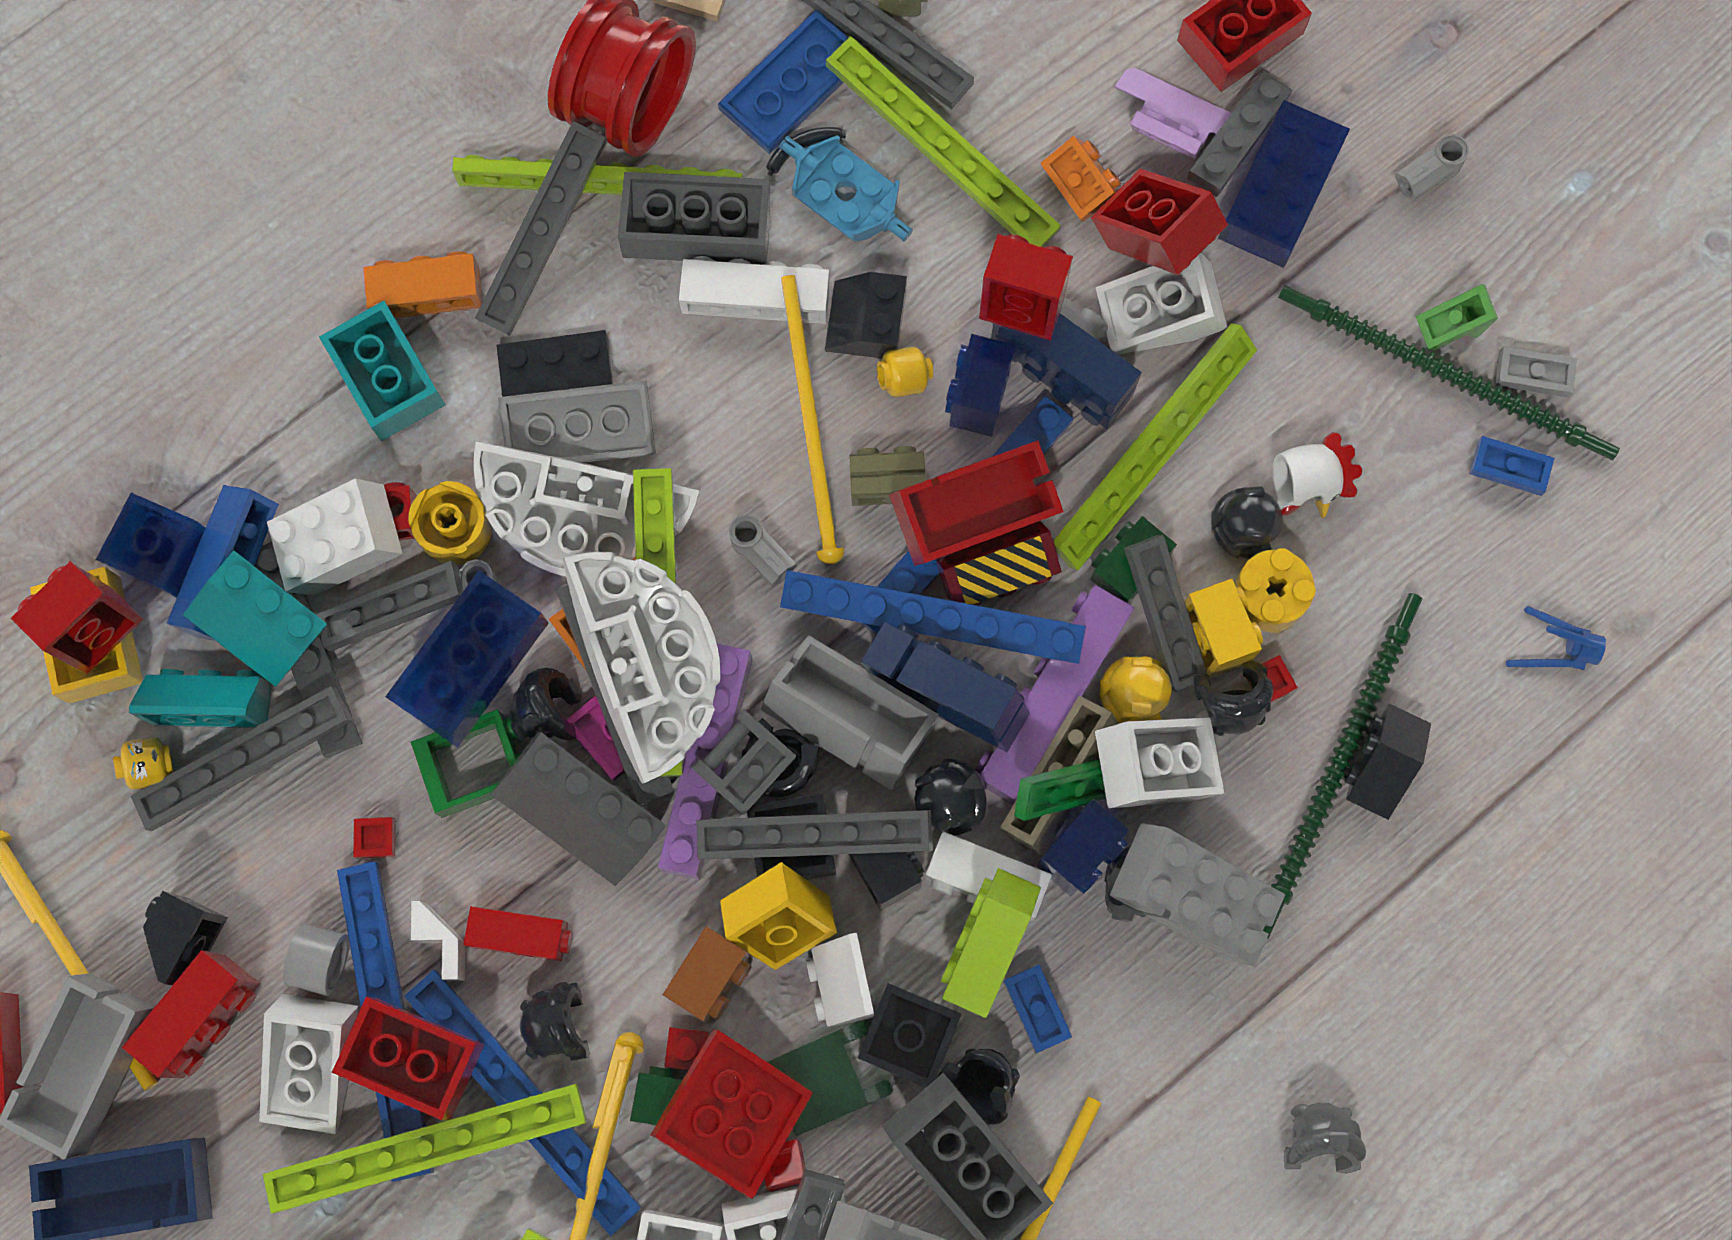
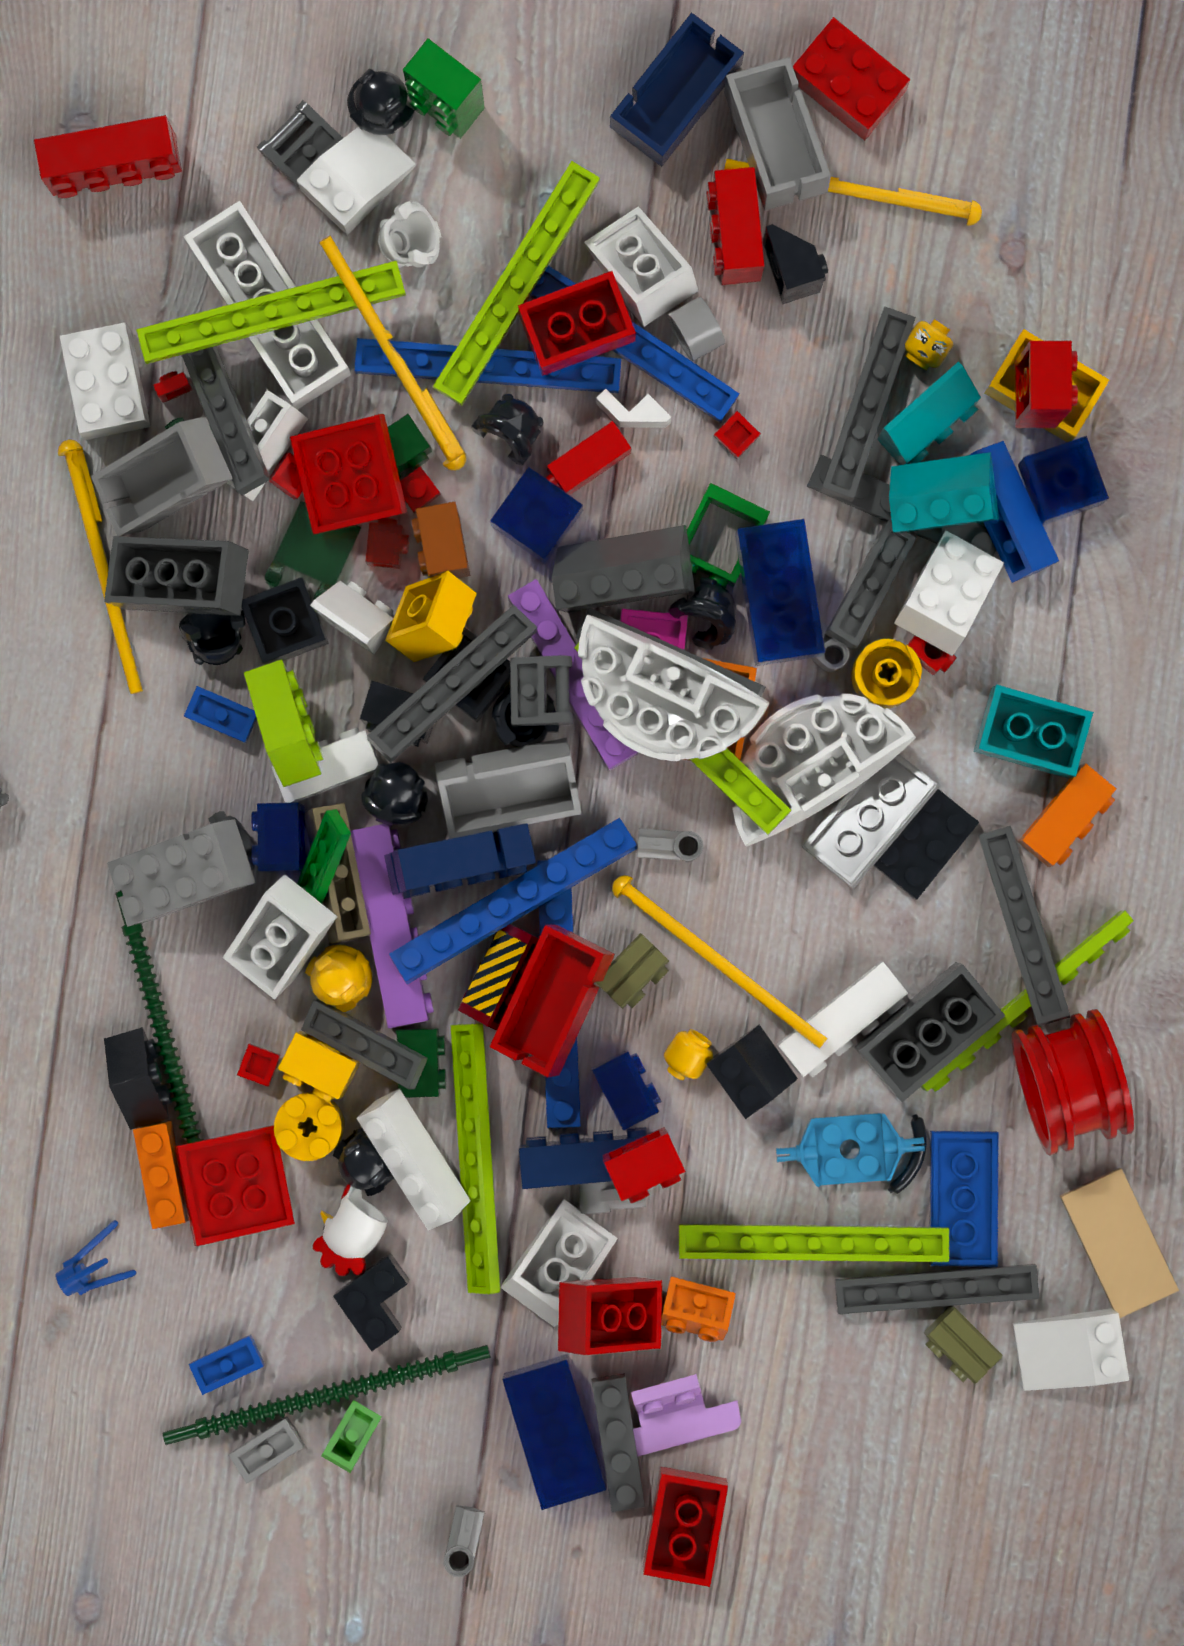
camera: 135 degrees right, 10 degrees up
(605, 926) = (536, 515): none -> clear blue brick
(757, 1023) = (386, 544): none -> clear red brick
(1209, 484) = (413, 1159): none -> white brick
(1237, 709) = (264, 1023): black helmet -> none
(1347, 411) = (365, 1297): none -> black brick
(1380, 598) = (234, 1185): none -> red plate
(1436, 661) = (161, 1174): none -> orange brick

